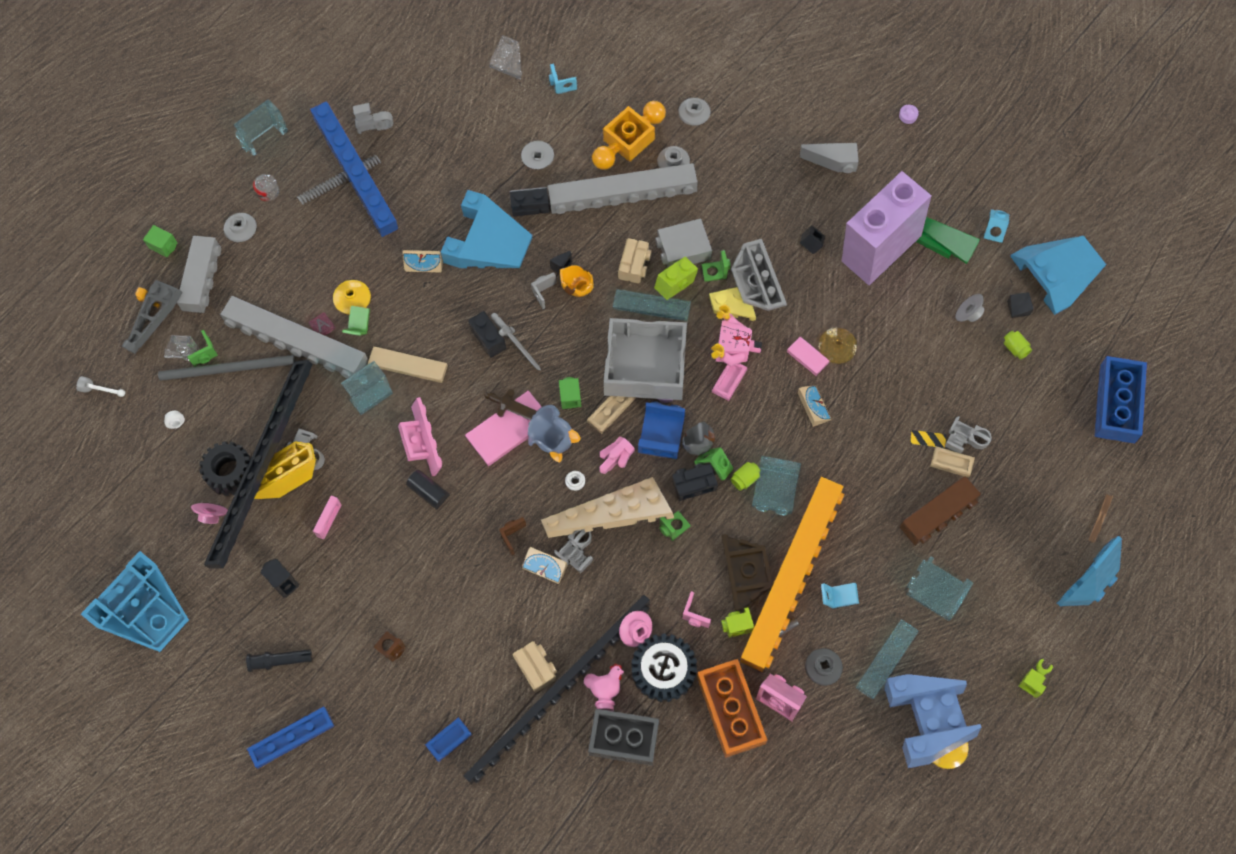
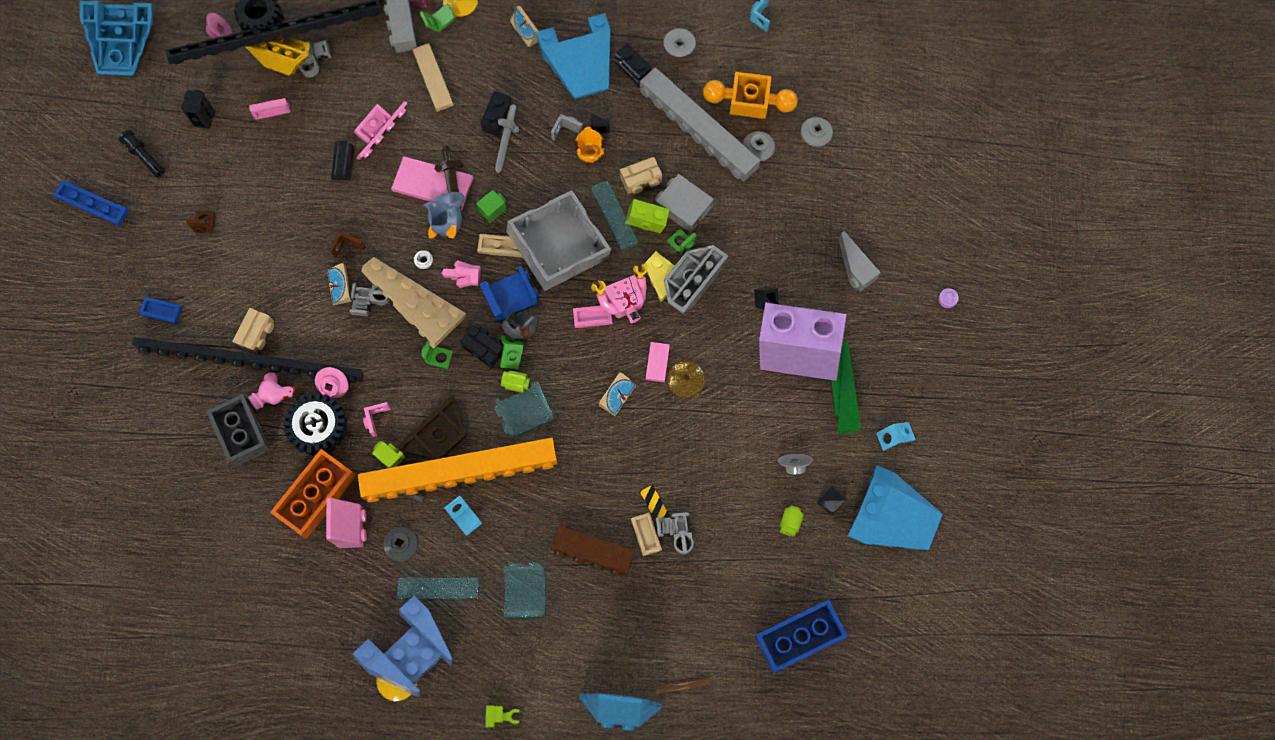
camera: 50 degrees right, 5 degrees up
(367, 387) = (382, 60): clear light blue panel -> none

